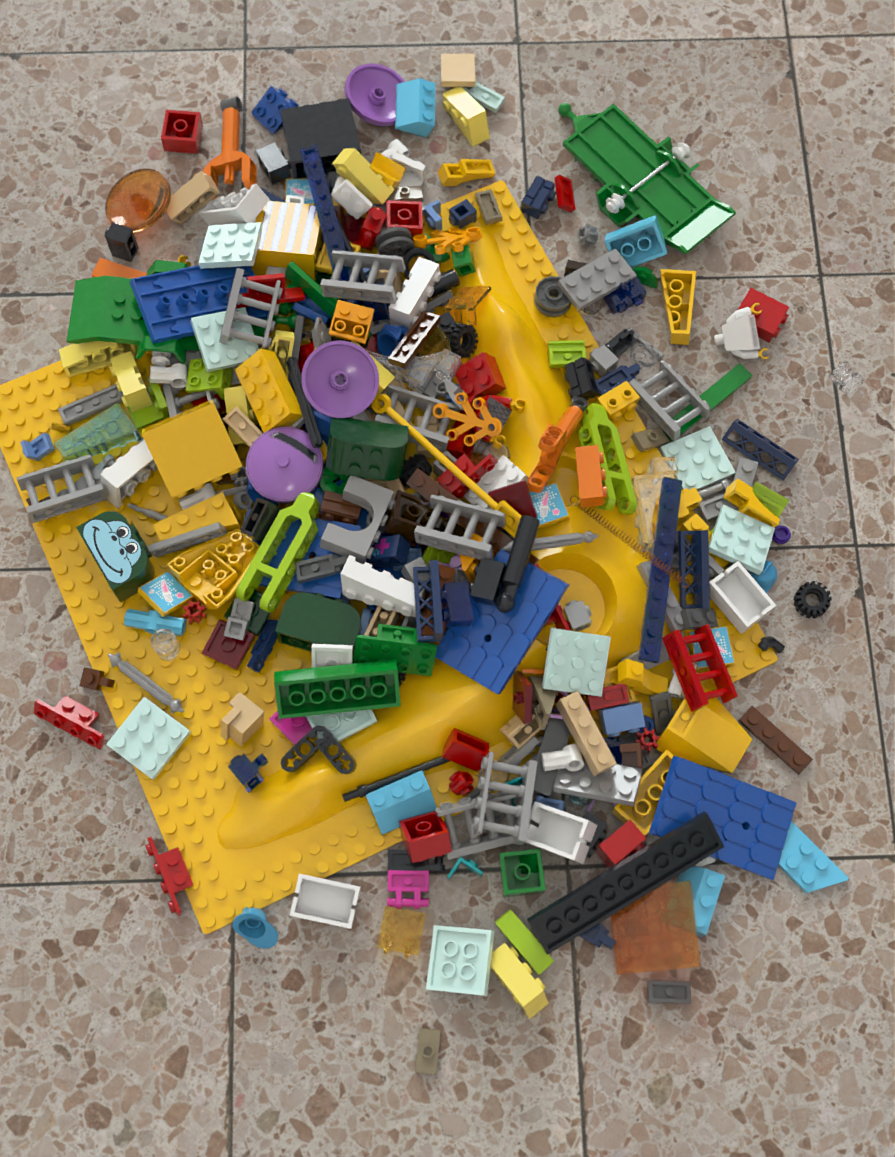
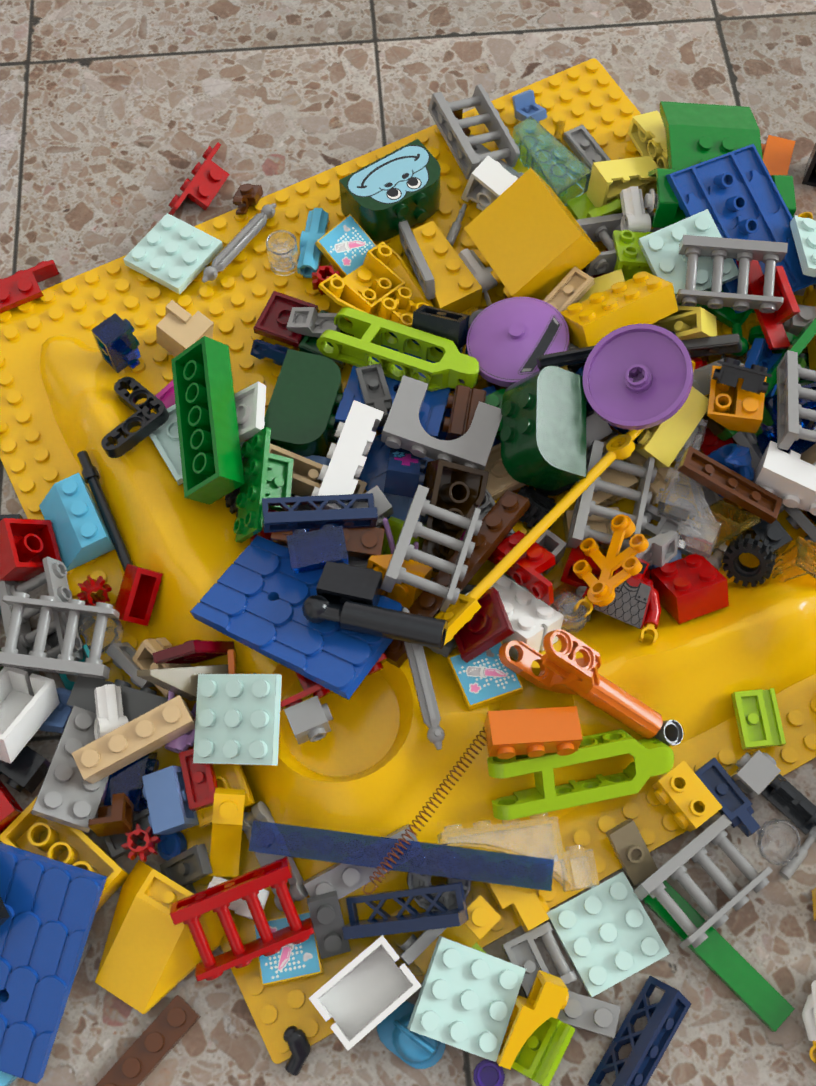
camera: 90 degrees right, 5 degrees down
(346, 307) = (732, 371): none -> black hinge
(581, 379) = (714, 738): black brick -> none

